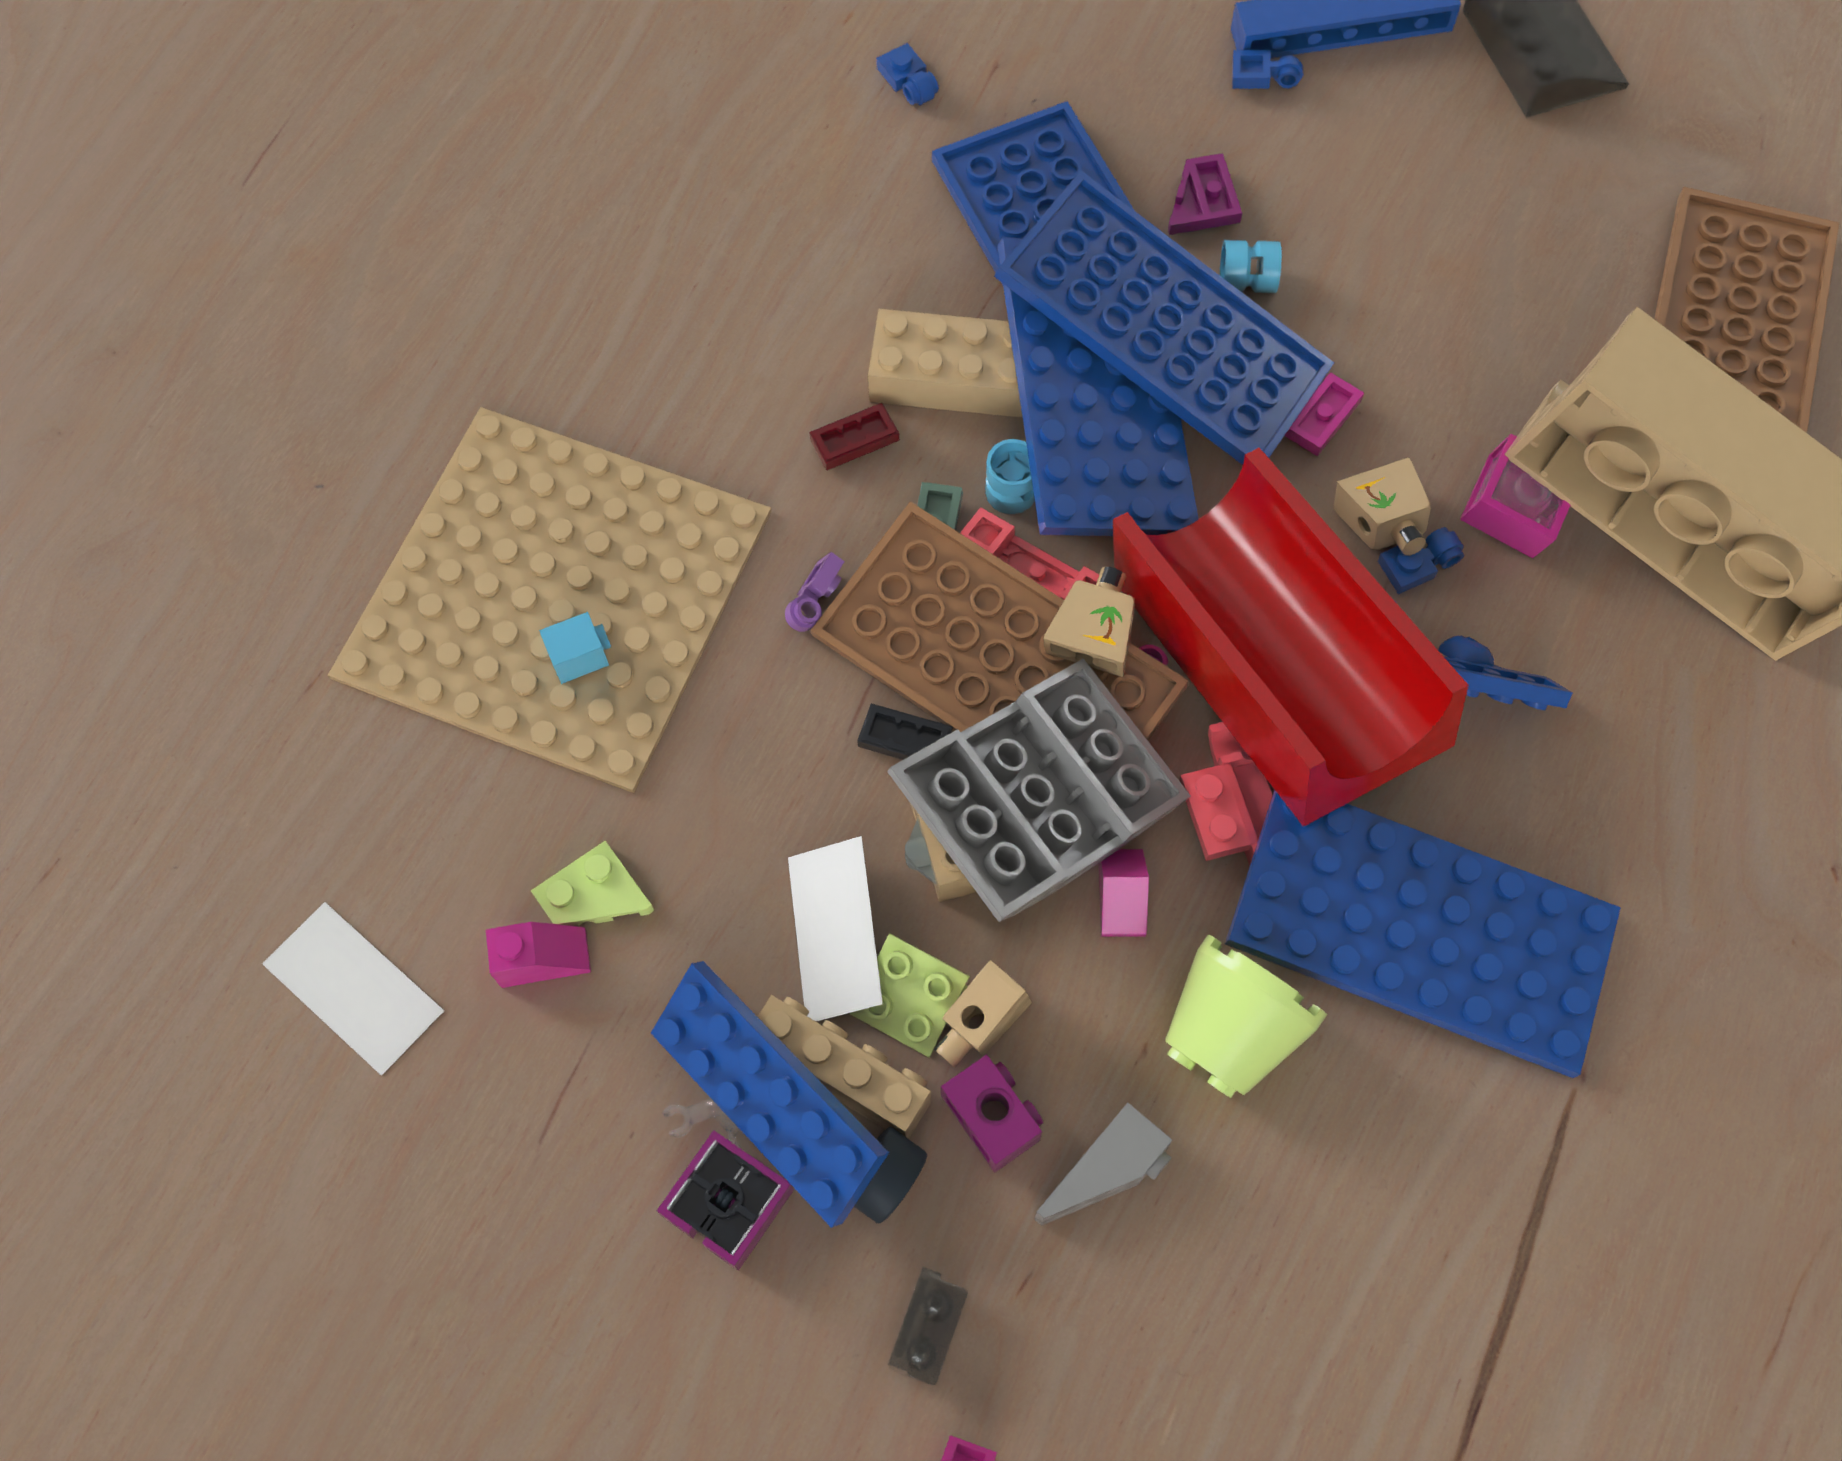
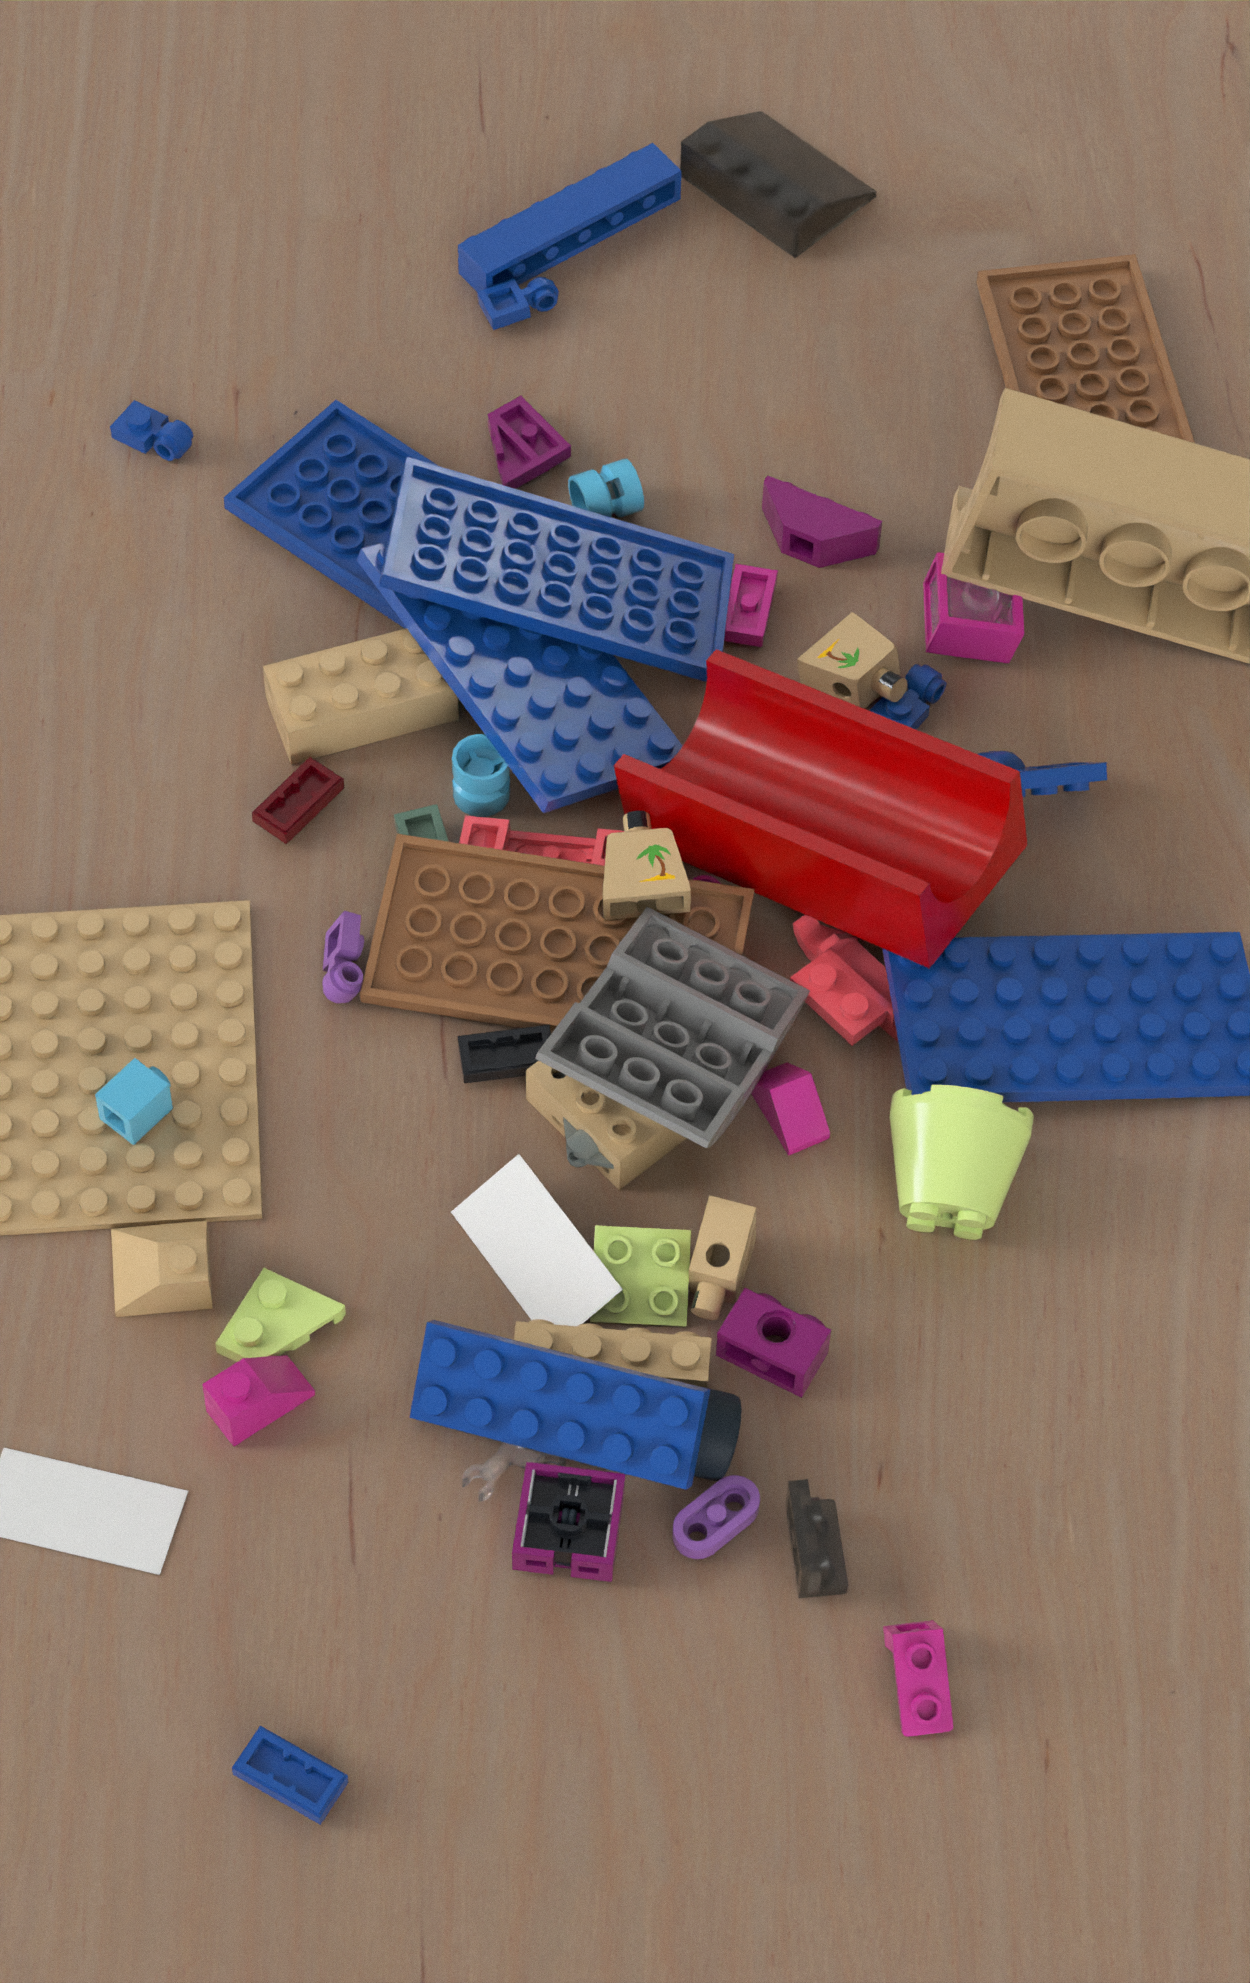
camera: 30 degrees left, 10 degrees down
(377, 1318) = (290, 1775): none -> blue plate
(529, 801) = (161, 1268): none -> tan slope
(855, 1251) = (712, 1517): none -> medium lavender plate
(1113, 1164) = (907, 1337): light grey slope -> none
(1420, 366) = (817, 527): none -> magenta slope

